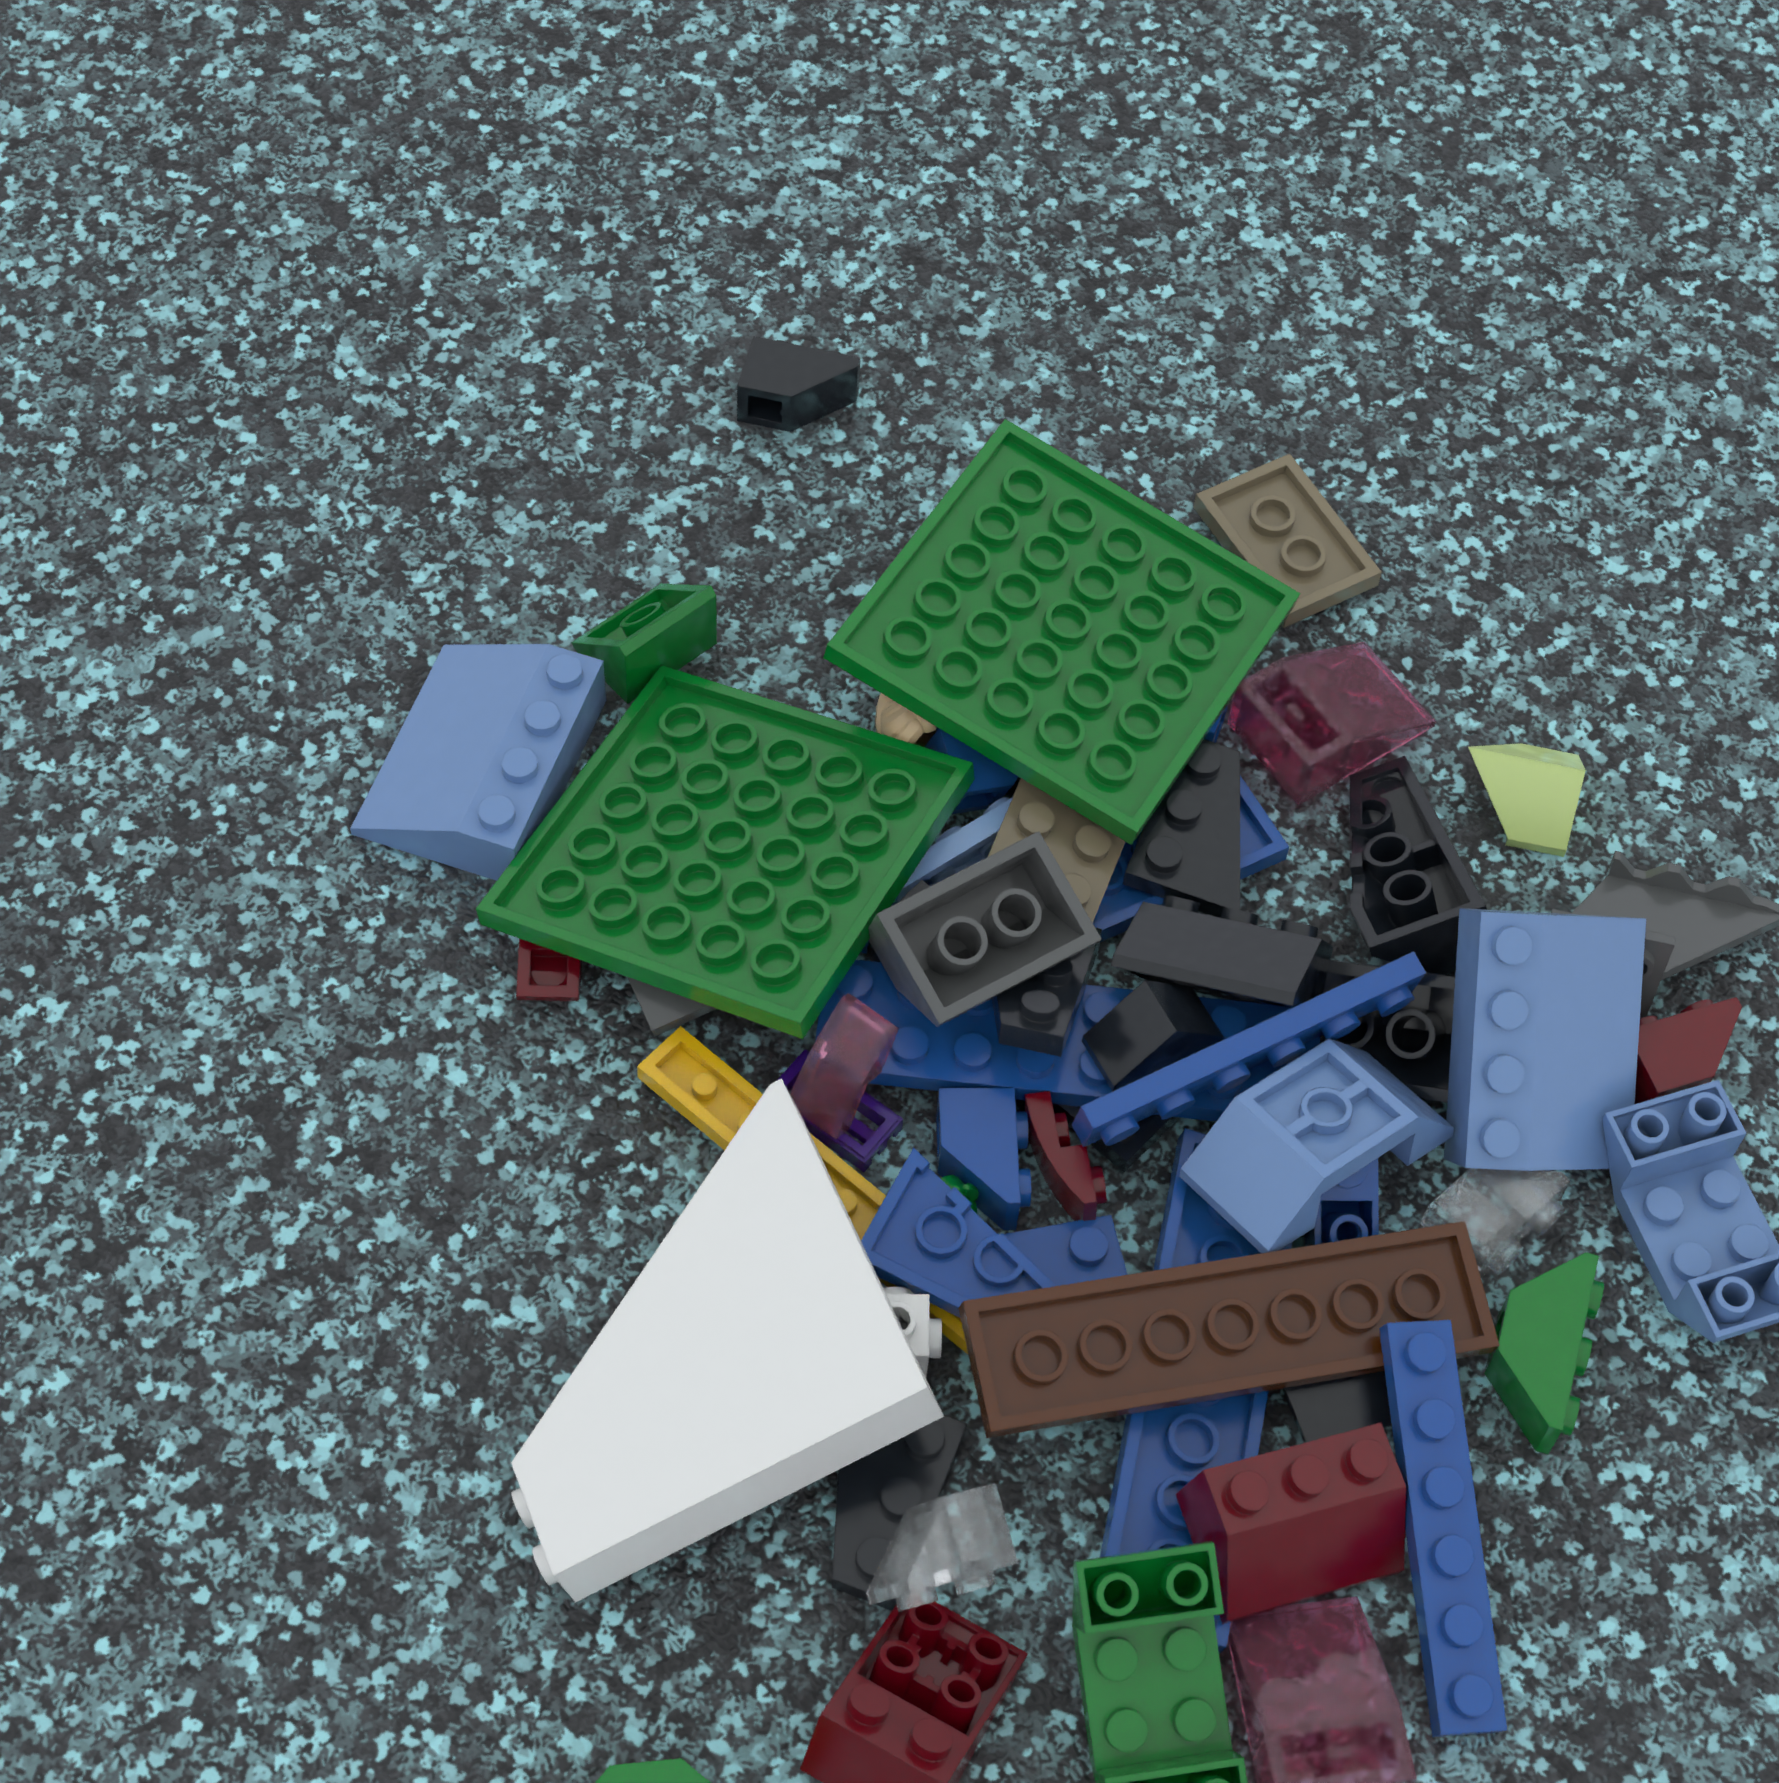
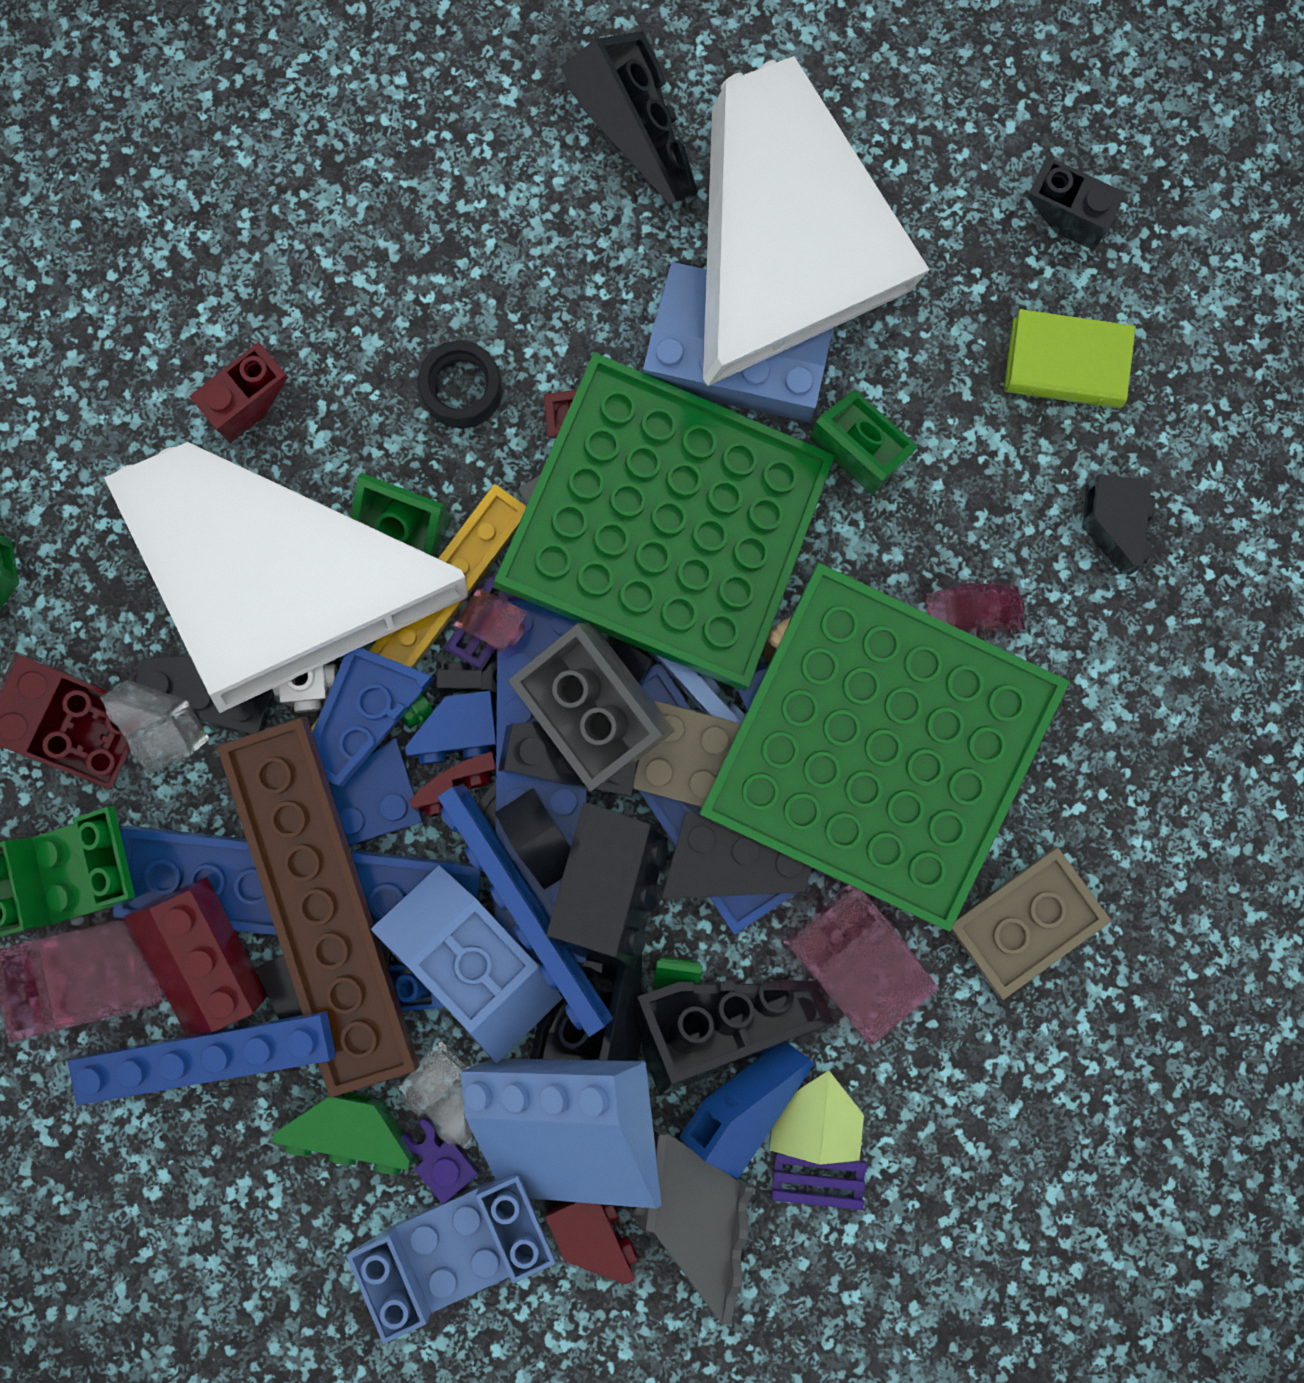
camera: 85 degrees right, 25 degrees up
(88, 858) = (620, 90): none -> black wedge
(341, 658) = (790, 224): none -> white slope
(381, 365) = (1074, 202): none -> black slope
(444, 1389) = (241, 392): none -> dark red slope
(479, 1059) = (454, 352): none -> black tyre
(576, 409) = (1069, 359): none -> lime piece
(659, 1185) = (400, 514): none -> green slope
(884, 532) = (979, 608): none -> clear pink slope
(916, 1130) = (458, 678): none -> black plate
(1336, 921) = (676, 970): none -> green slope
(1511, 853) = (744, 1109): none -> blue slope
(1589, 1227) = (443, 1166): none -> dark purple plate
(1608, 763) = (816, 1198): none -> dark purple tile

